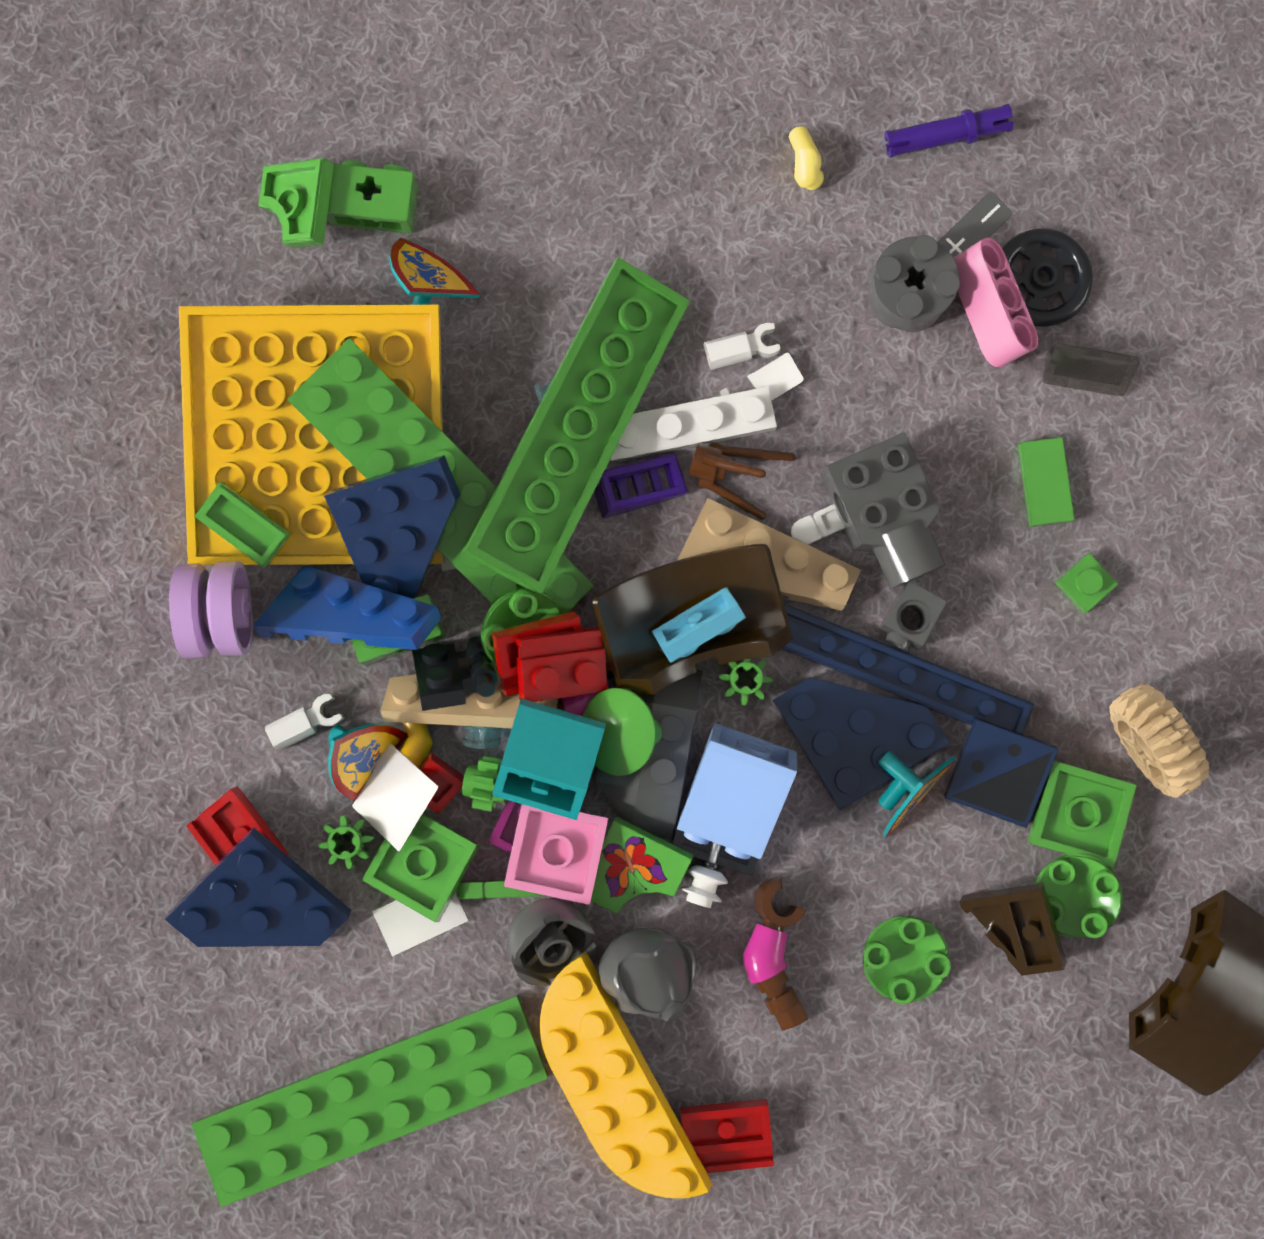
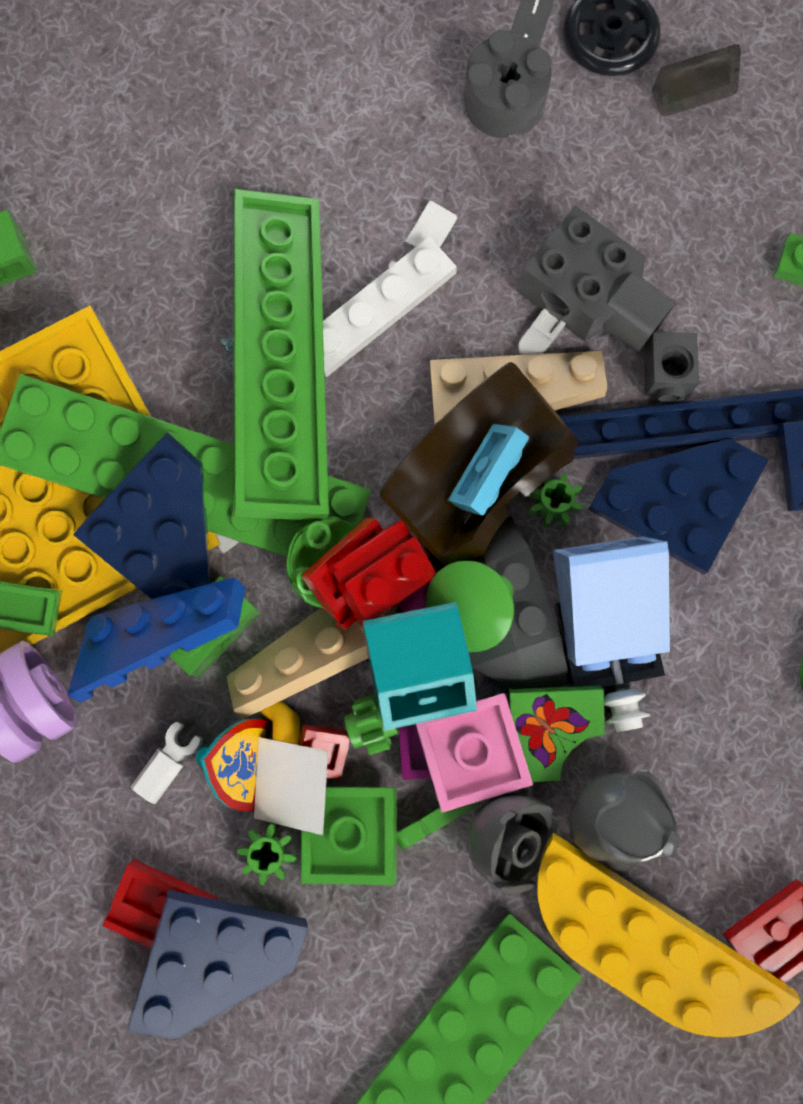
camera: 30 degrees left, 5 degrees down
(407, 928) = (369, 905): white sticker -> none
(426, 274) = (67, 296): shield -> none
(448, 675) = (281, 643): black plate -> none
(481, 737) = (342, 683): clear light blue bush -> none
(605, 498) = (345, 404): dark purple slope -> none
(714, 461) = (417, 325): reddish brown plant -> none
(739, 347) = (385, 217): white bar -> none
(765, 956) = (717, 740): reddish brown piece -> none
(806, 159) = (356, 33): light yellow arm -> none
(905, 781) = (752, 511): teal shield -> none
(994, 303) = (588, 66): bright pink beam -> none
(1045, 482) = (716, 195): bright green tile -> none

